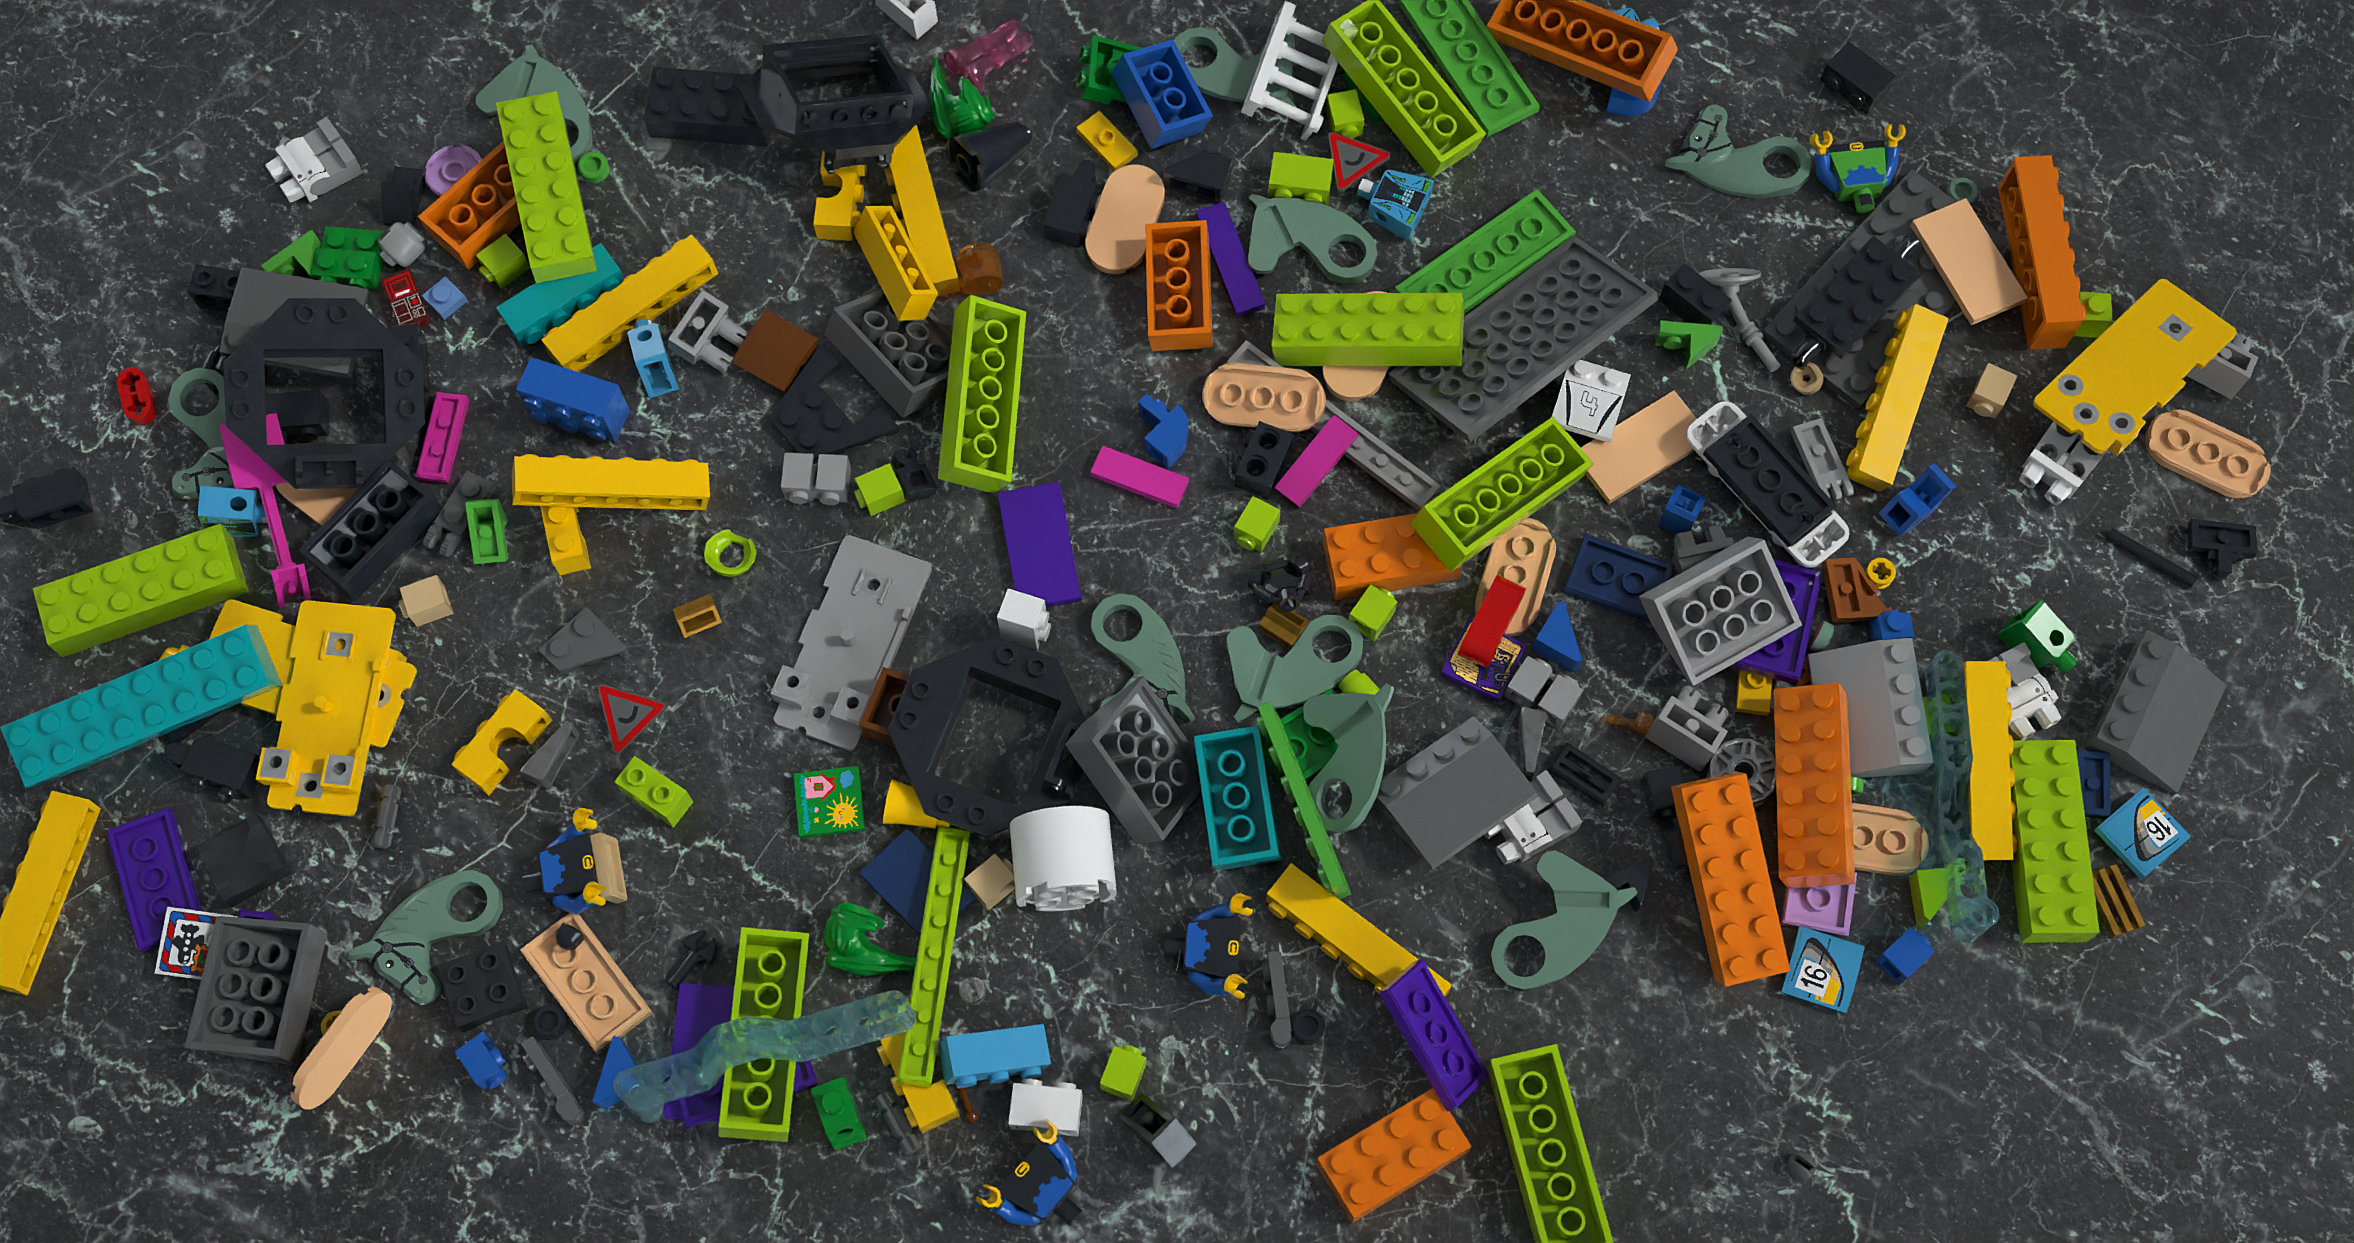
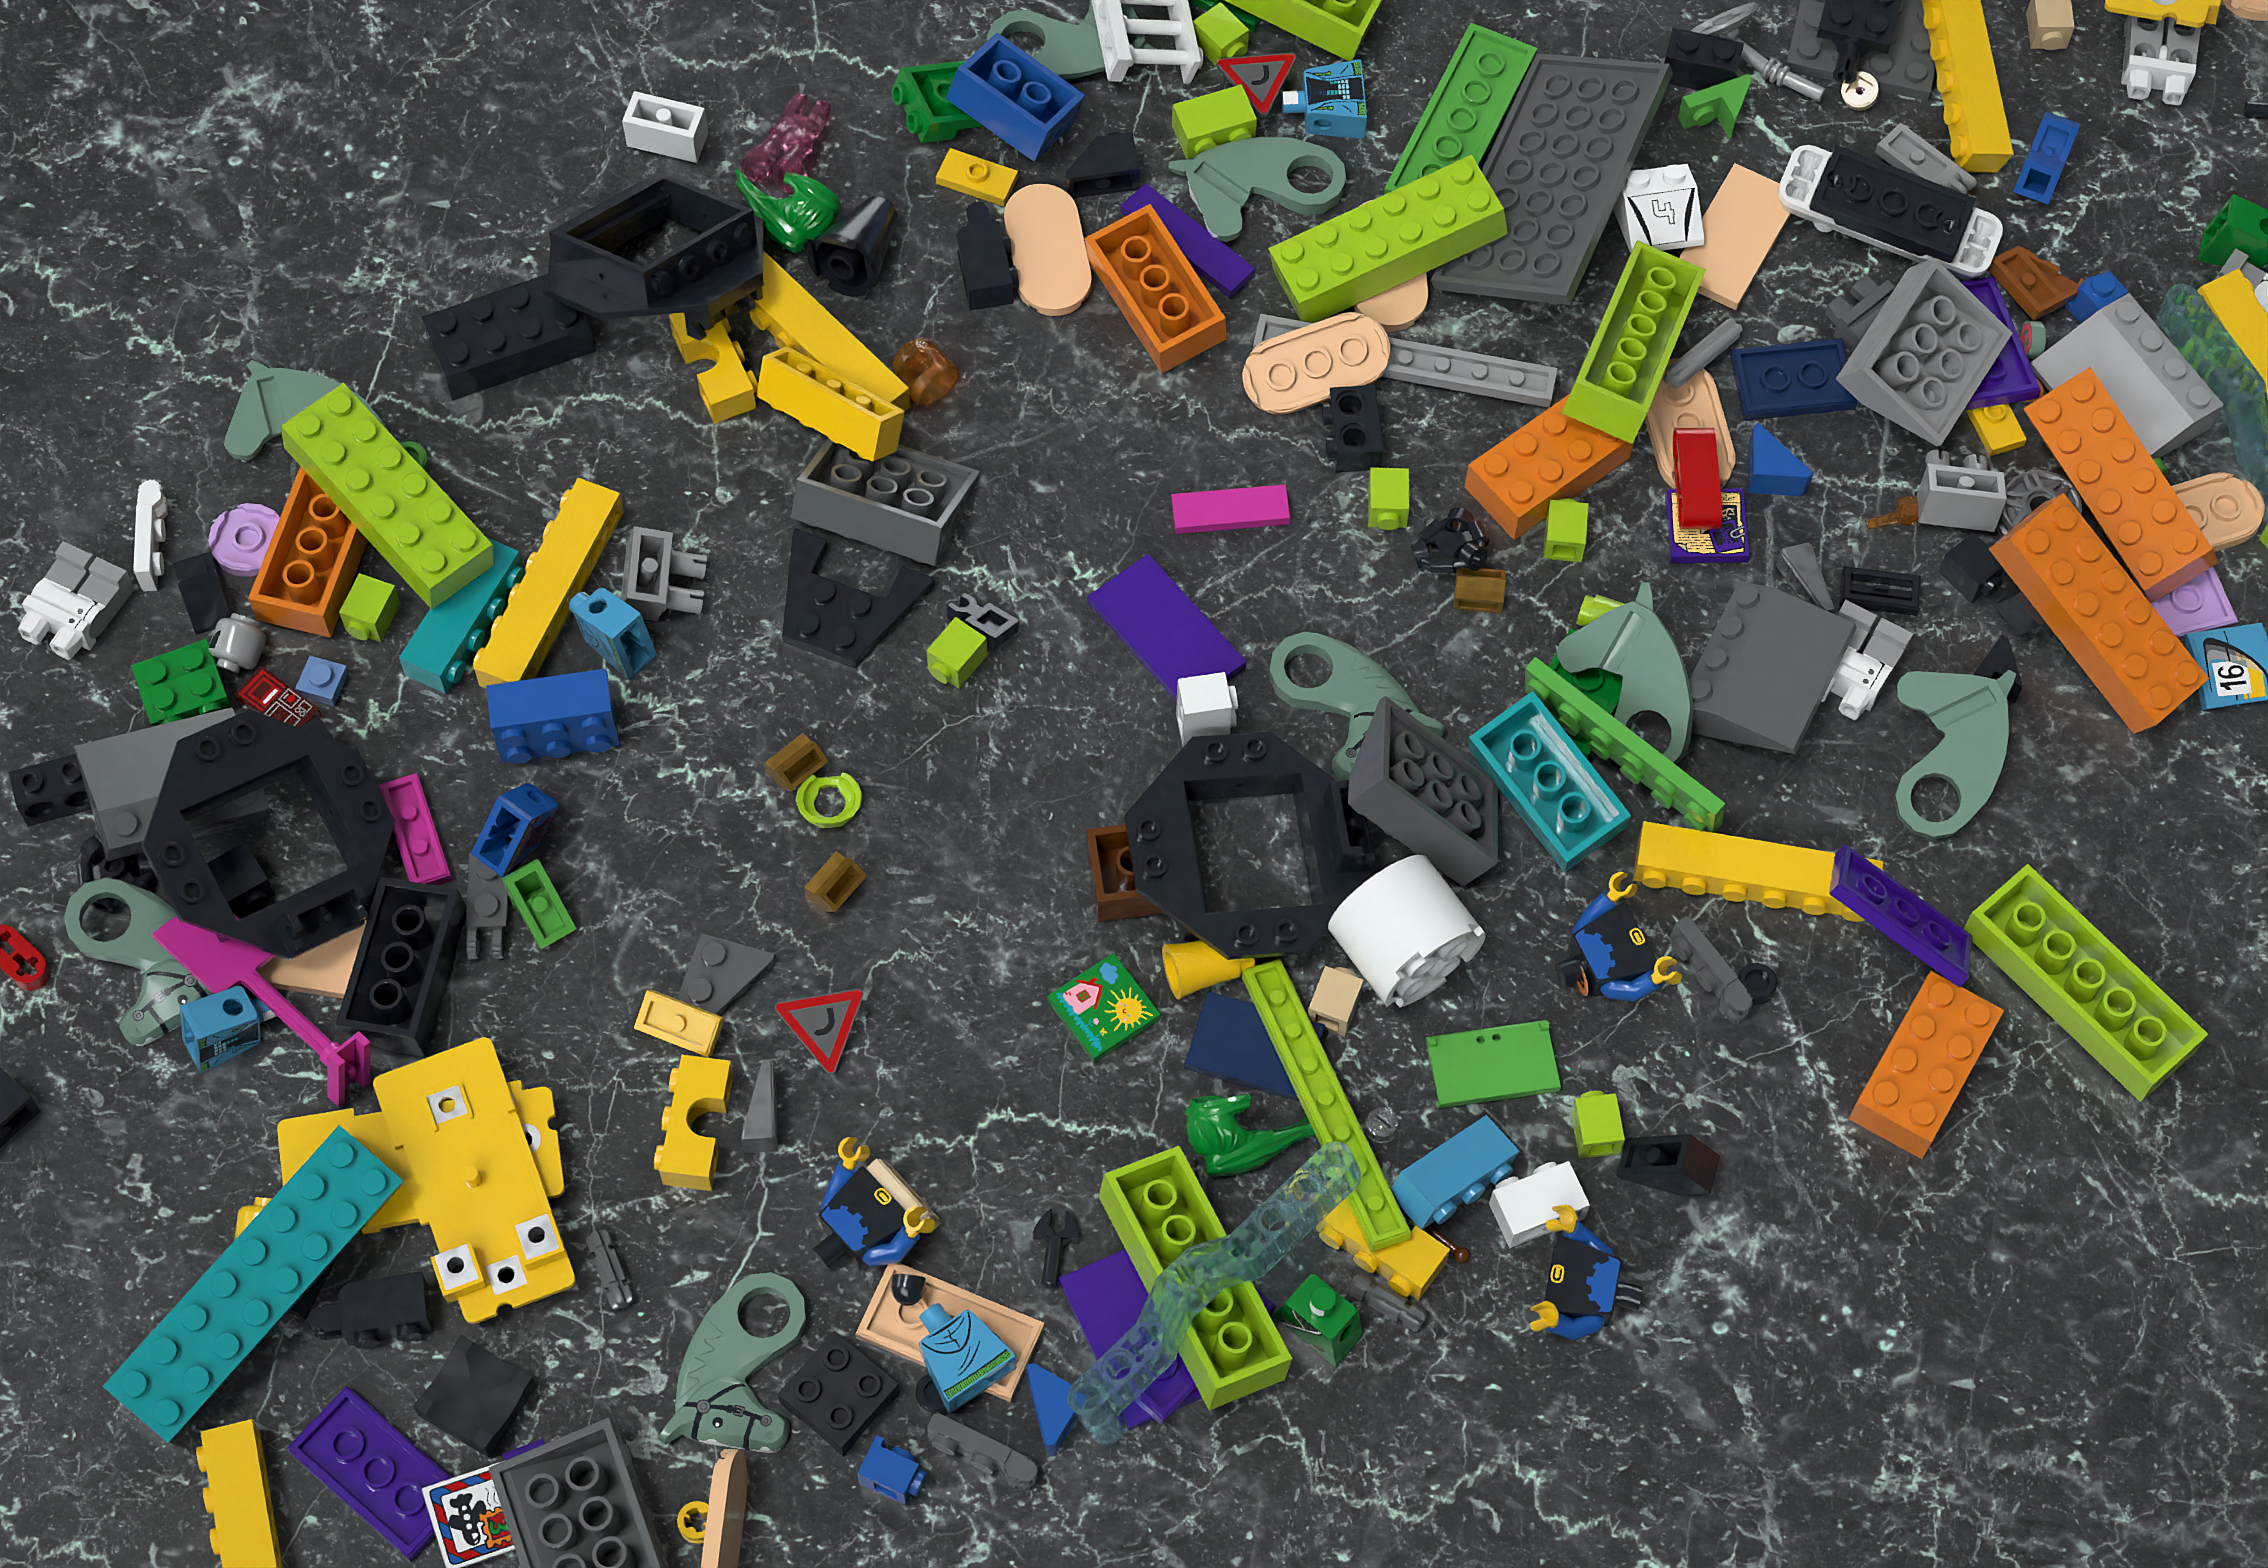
camera: 30 degrees left, 5 degrees down
(140, 590) = (163, 1164): lime brick -> none
(295, 257) = (121, 712): bright green slope -> none
(390, 138) = (149, 531): none -> white hinge
(425, 601) = (511, 1015): tan brick -> none
(492, 467) = (523, 816): none -> blue torso
(532, 664) = (679, 1023): none -> yellow plate
(565, 539) = (628, 860): yellow arch -> none
(574, 1005) = (962, 1355): none -> dark azure torso
(610, 483) = (656, 781): yellow brick -> none
(654, 791) = (904, 1089): lime brick -> none
(722, 515) = (795, 762): none -> pearl gold piece
(775, 350) = (746, 561): reddish brown slope -> none
(800, 478) = (895, 665): light grey piece -> none
(849, 641) = (1020, 830): light grey piece -> none
(982, 395) = (1014, 497): lime brick -> none
(1078, 989) = (1492, 1068): none -> bright green door
(1170, 432) = (1235, 442): blue brick -> none
(1297, 675) = (1500, 651): sand green animal -> none
(1317, 461) = (1412, 403): dark pink tile -> none
(1530, 682) = (1771, 523): light grey piece -> none
(1557, 526) = (1703, 353): none -> light grey axle
(1681, 510) = (1817, 281): blue slope -> none
(1886, 566) = (2052, 242): yellow bush -> none

